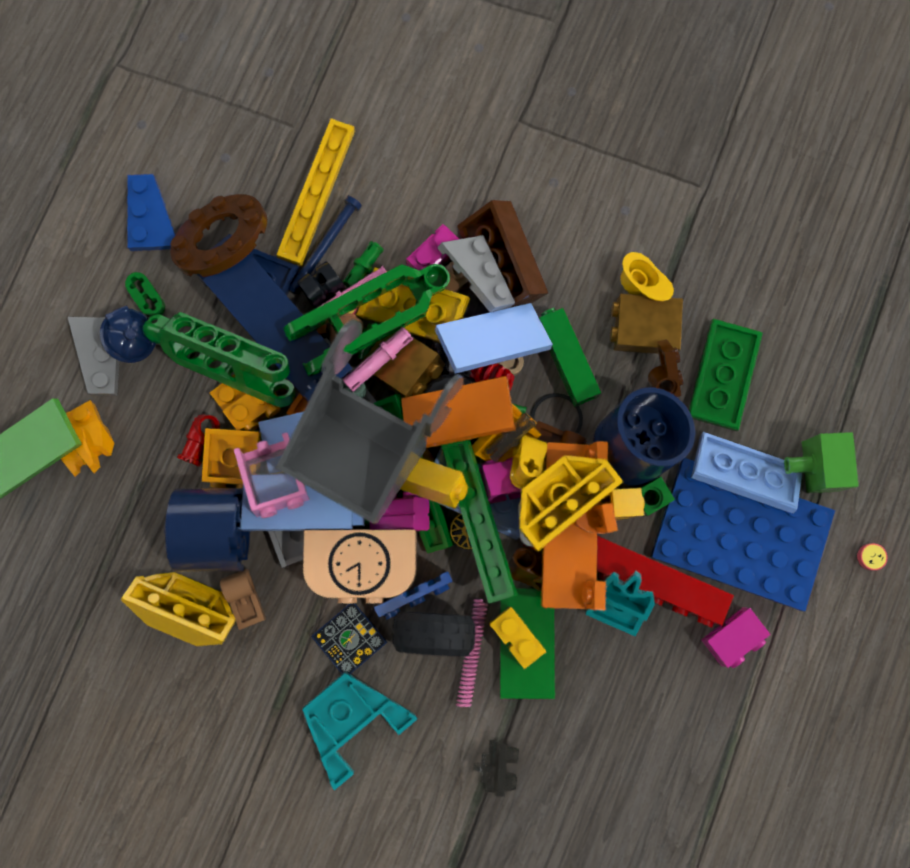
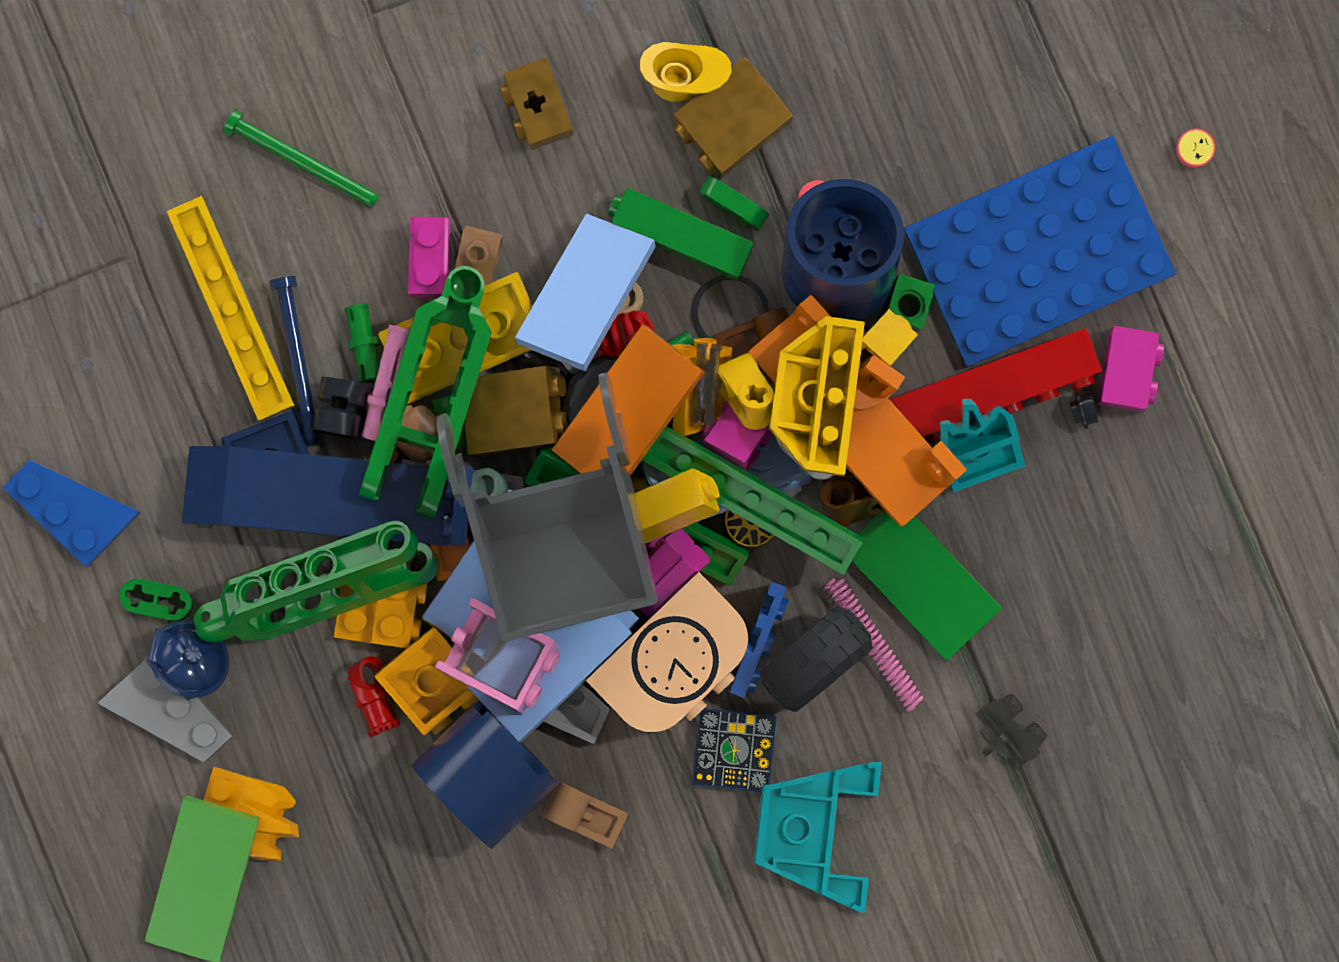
camera: 45 degrees left, 5 degrees up
(181, 608) = (532, 883): yellow wedge -> none
(251, 220) = (222, 467): reddish brown plate -> none
(377, 359) = (486, 431): bright pink pin -> none
(403, 110) = (236, 125): none -> green bar
(478, 265) = (494, 228): light grey wing -> none
(509, 247) = (506, 191): reddish brown slope -> none
(524, 644) = (889, 578): yellow piece -> none
(552, 244) = (536, 81): none -> pearl gold brick
(608, 366) = (733, 203): none -> green beam
(667, 370) = (805, 160): reddish brown plate -> none
(692, 636) = (1084, 410): none -> black plate
(725, 374) = (865, 94): green tile -> none
(746, 472) = (984, 181): light blue tile -> none
(827, 463) = (1057, 97): bright green brick -> none

